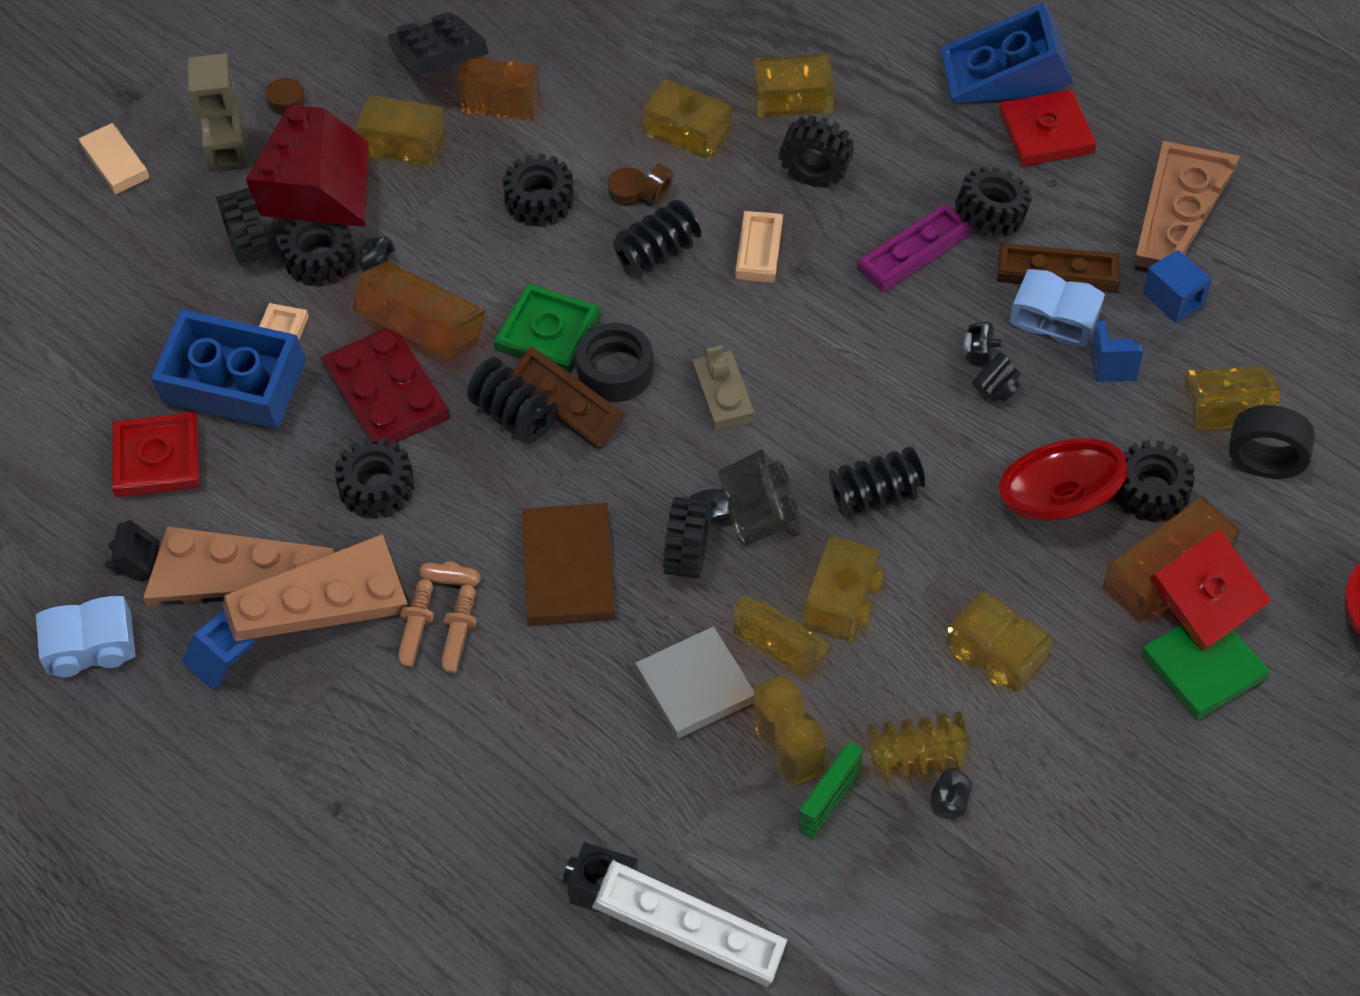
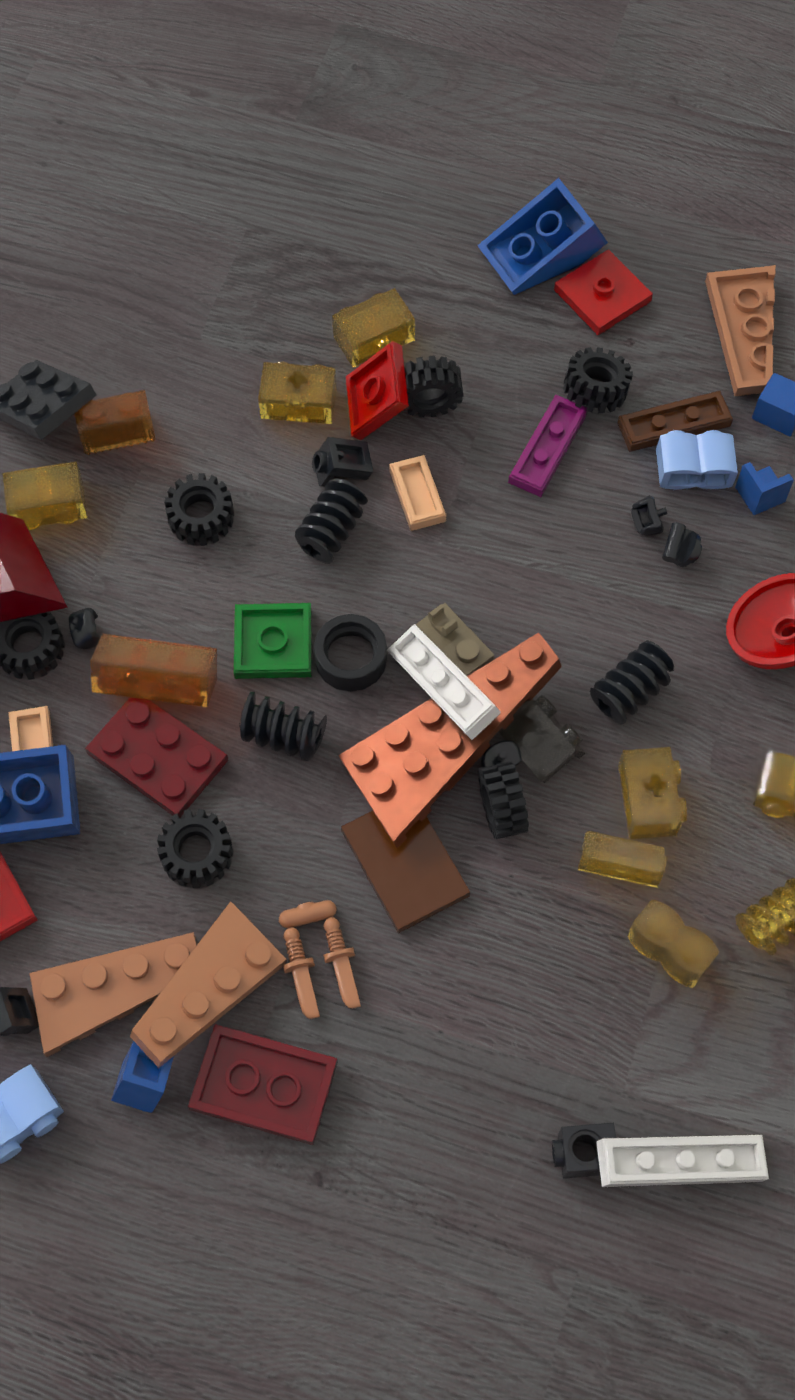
camera: 25 degrees left, 10 degrees up
(327, 702) = (263, 1084): none -> dark red plate
(576, 402) = (343, 706): reddish brown tile -> none
(626, 186) = (274, 476): reddish brown tile -> none
(657, 184) = (302, 466): reddish brown tile -> none
(659, 462) = (427, 753): none -> wing
(683, 410) = (444, 682): none -> white tile
(695, 682) = (568, 929): light grey tile -> none
(700, 190) = (342, 459): none -> black bracket
(762, 138) = (376, 391): none -> red plate
(830, 790) = (732, 984): green tile -> none

